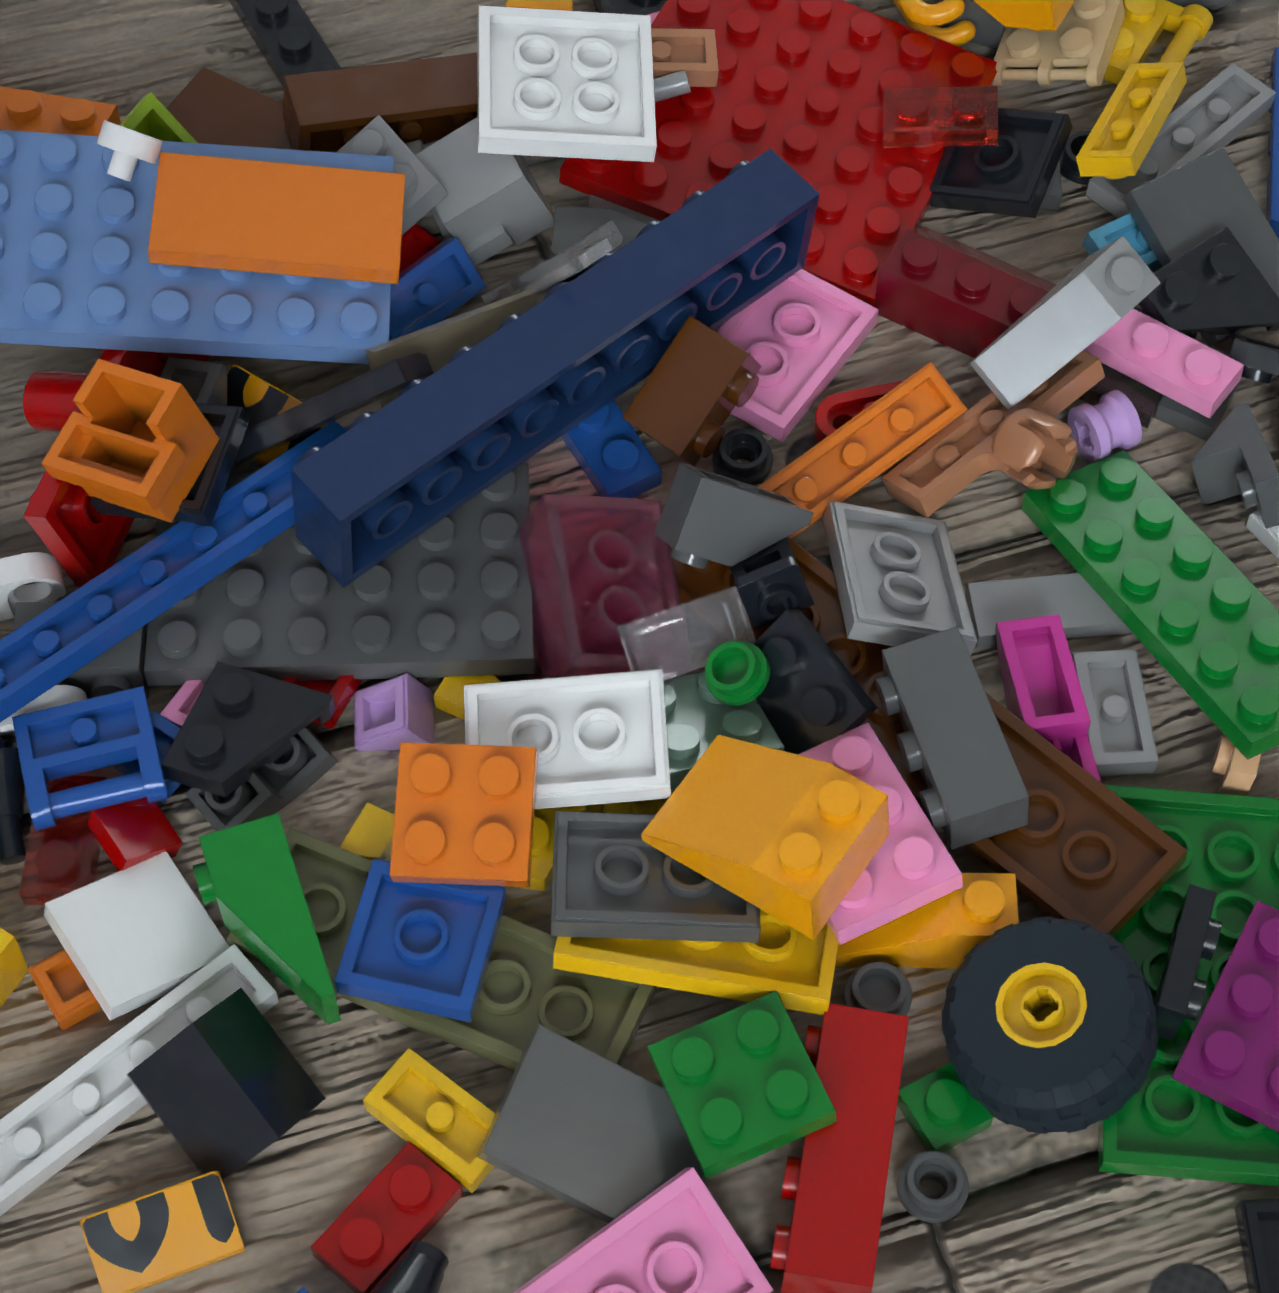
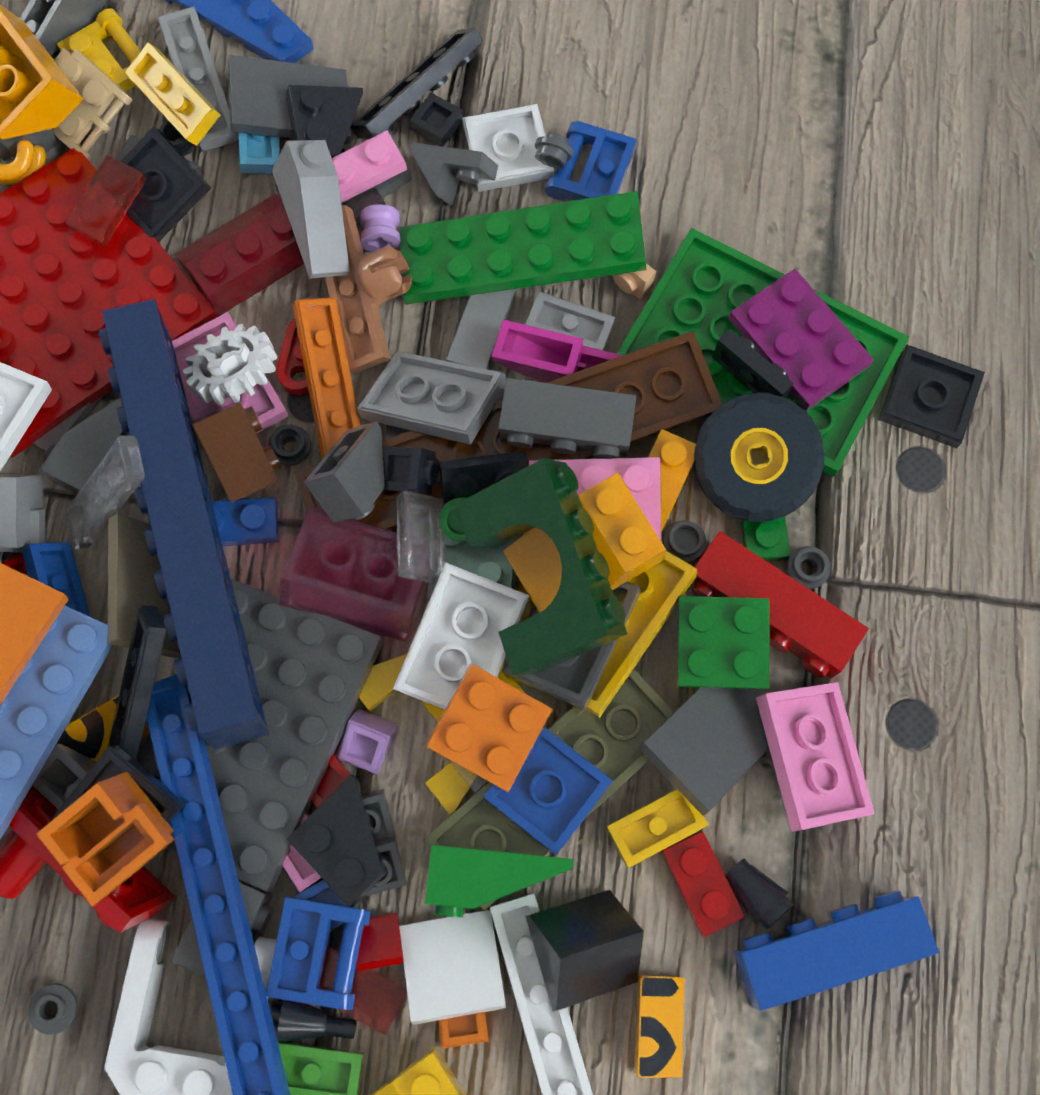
camera: 65 degrees left, 15 degrees up
(671, 830) = (584, 608): none -> dark green arch
(800, 331) = (233, 362): none -> white gear

